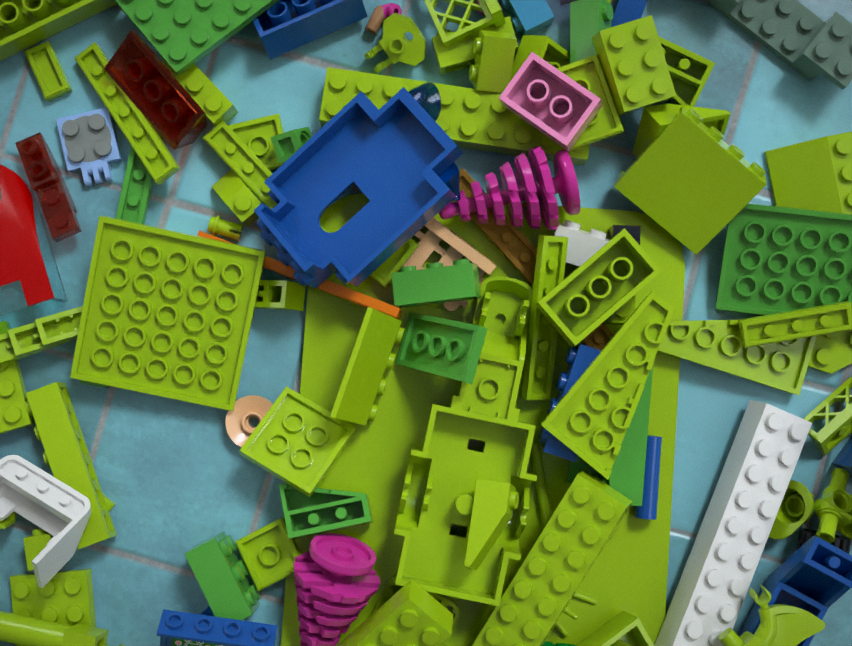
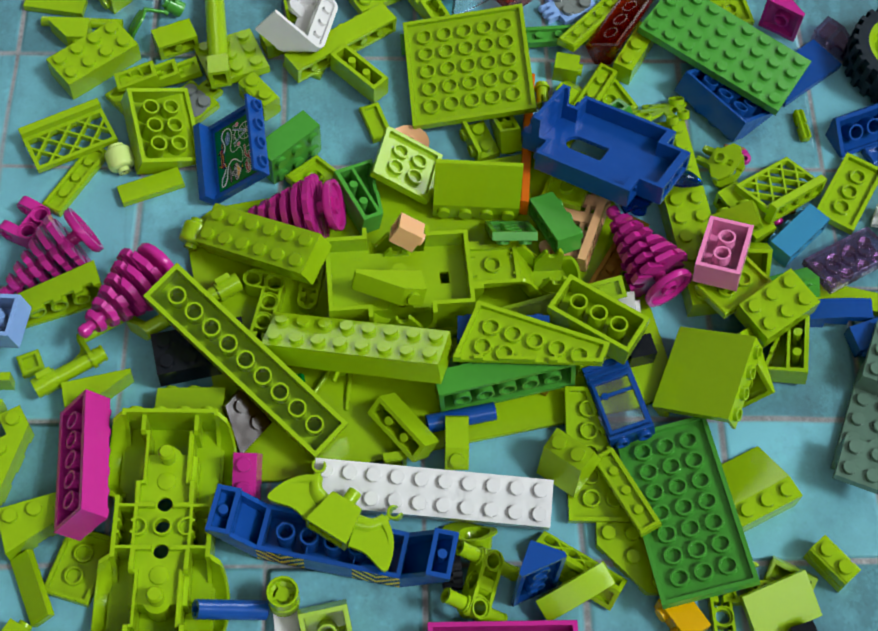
camera: 75 degrees right, 25 degrees down
(127, 593) = (256, 87): none -> lime brick
(129, 455) = (359, 73): none -> lime brick
(195, 182) = (567, 67): none -> lime brick
(205, 452) = (374, 121): none -> lime tile
(274, 330) = (479, 141): none -> lime bracket
(290, 66) = (674, 104): none -> lime plant
(418, 480) = (407, 232): none -> light nougat brick
(648, 548) = (403, 427): none -> lime brick
(675, 566) = (394, 458): none -> lime tile
(683, 494) = (456, 443): none -> lime slope
(697, 291) = (619, 403): none -> blue door
(742, 375) = (567, 462): none -> lime slope

